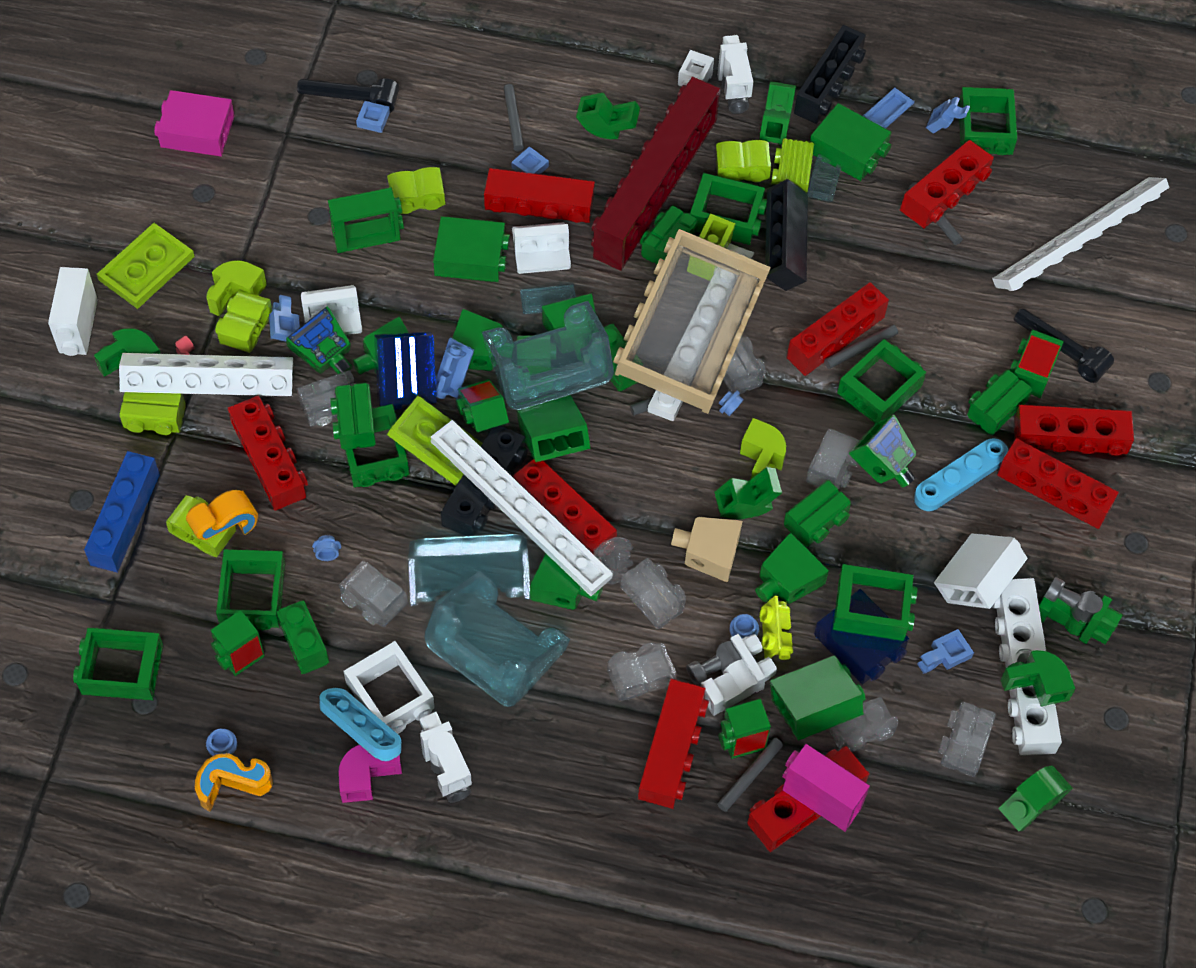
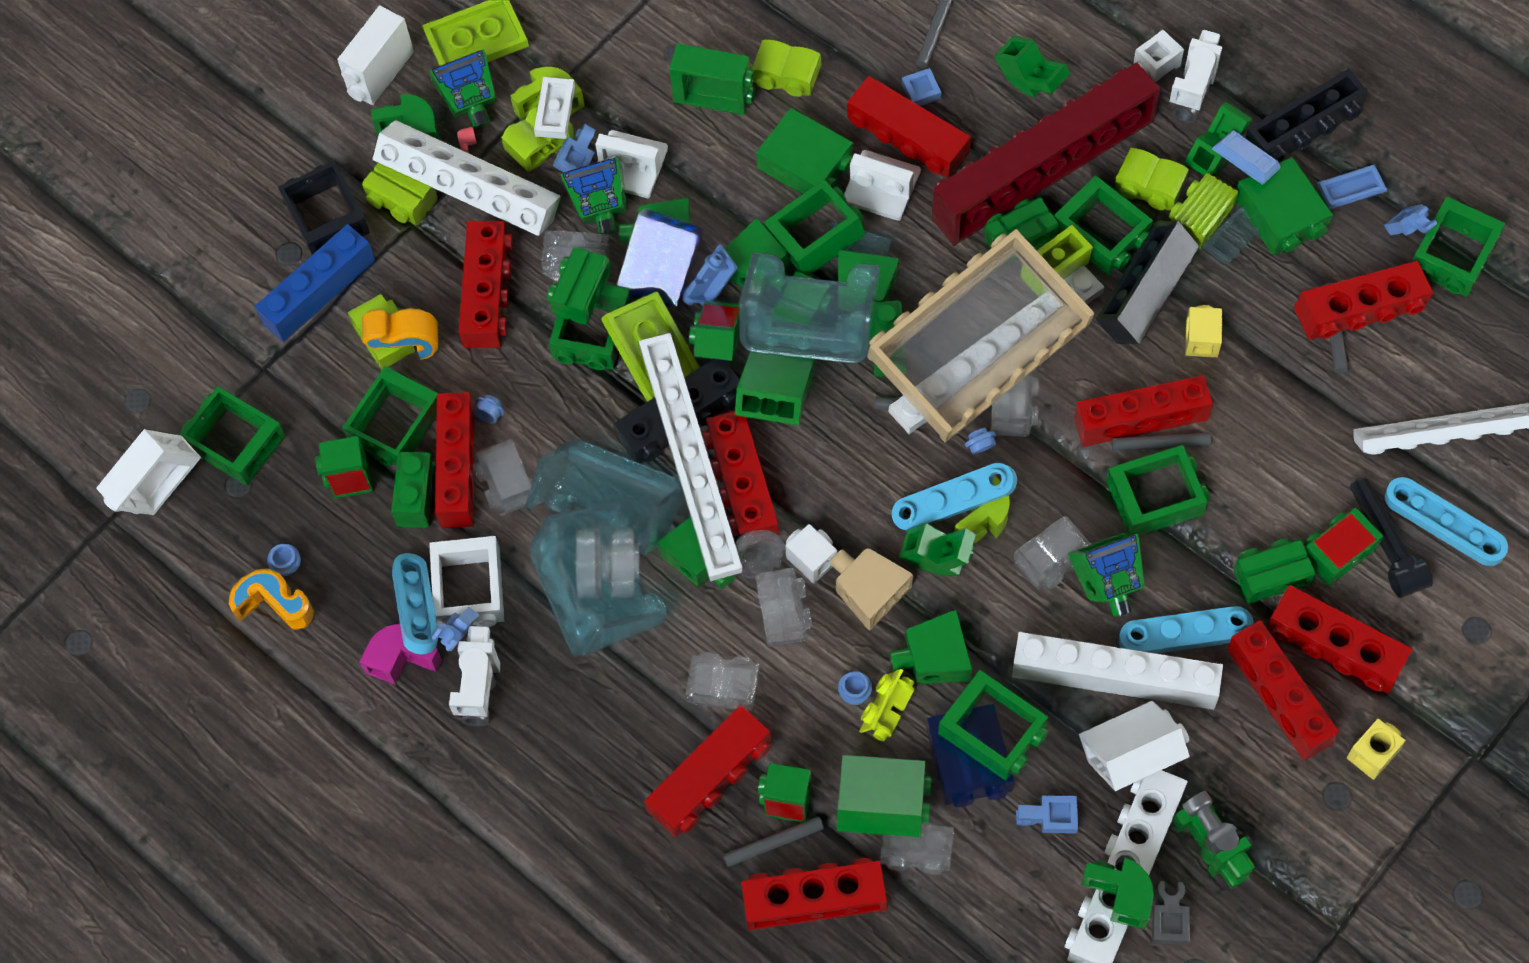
camera: 35 degrees right, 5 degrees up
(69, 723) = (148, 473): none -> white window
(73, 434) = (322, 179): none -> black window
(163, 306) = (466, 87): none -> torso
(252, 290) = (554, 108): none -> white plate
(324, 598) = (455, 460): none -> red brick
(408, 726) = (455, 628): none -> medium blue plate
(501, 619) = (614, 563): none -> clear wheel
(522, 323) = (828, 245): none -> green window
(651, 541) = (810, 552): none -> white brick
(739, 450) = (955, 496): none -> medium azure plate
(740, 671) = (822, 732): white hips -> none
(808, 114) = (1247, 157): none -> medium blue tile
(817, 514) = (1001, 603): green brick -> none
(824, 787) = (821, 892): dark pink brick -> none
(846, 254) = (1203, 331): none -> light yellow brick
(931, 524) = (1117, 670): none -> white brick
(967, 739) = (1015, 915): clear brick -> none
(1086, 689) = (1170, 920): none -> flat silver plate
(1095, 314) = (1446, 521): none -> medium azure plate
(1141, 503) = (1367, 758): none -> light yellow brick

